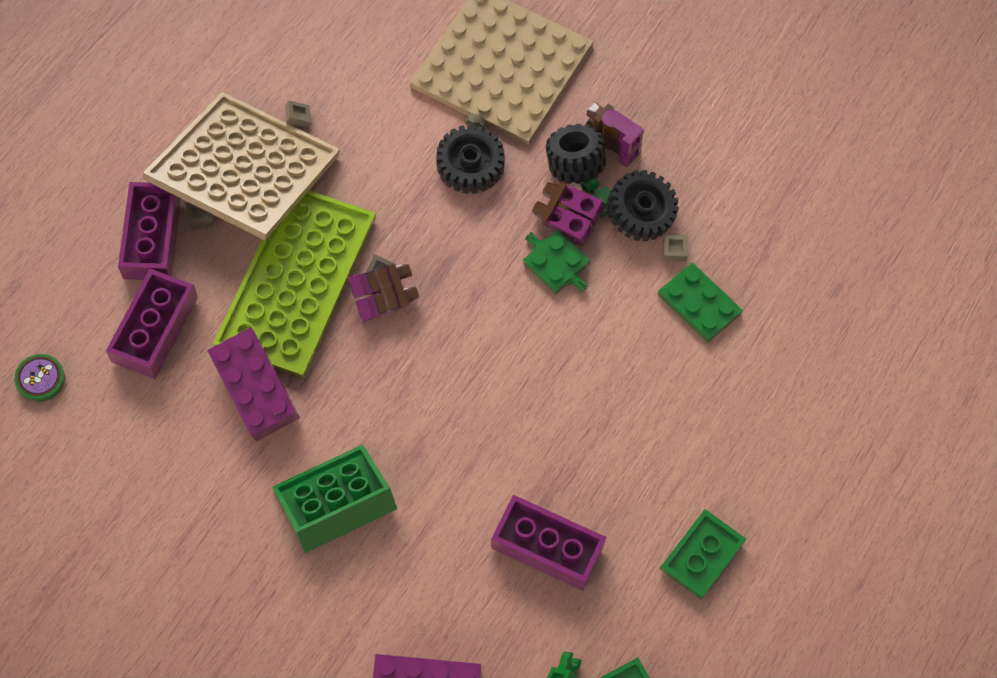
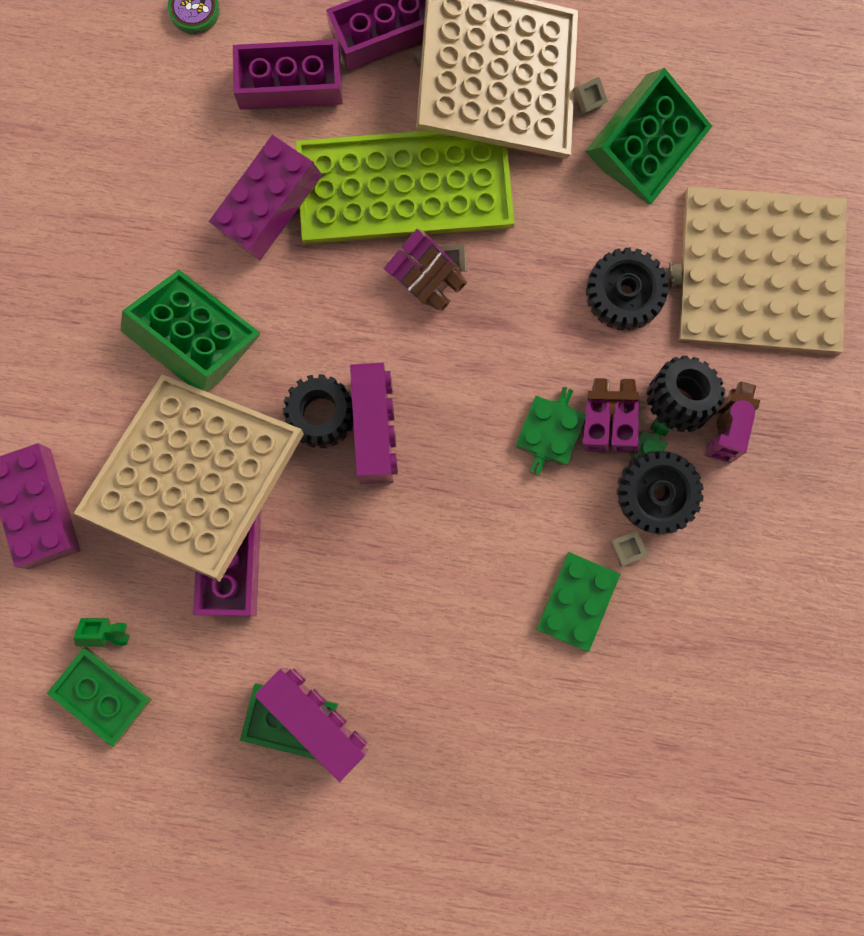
camera: 70 degrees right, 15 degrees up
(354, 89) = (650, 136): none -> green slope
(457, 402) = (319, 389): none -> black tyre
(466, 537) = (190, 476): none -> tan plate
(490, 382) = (372, 423): none -> magenta brick
(715, 521) = (312, 723): none -> magenta brick

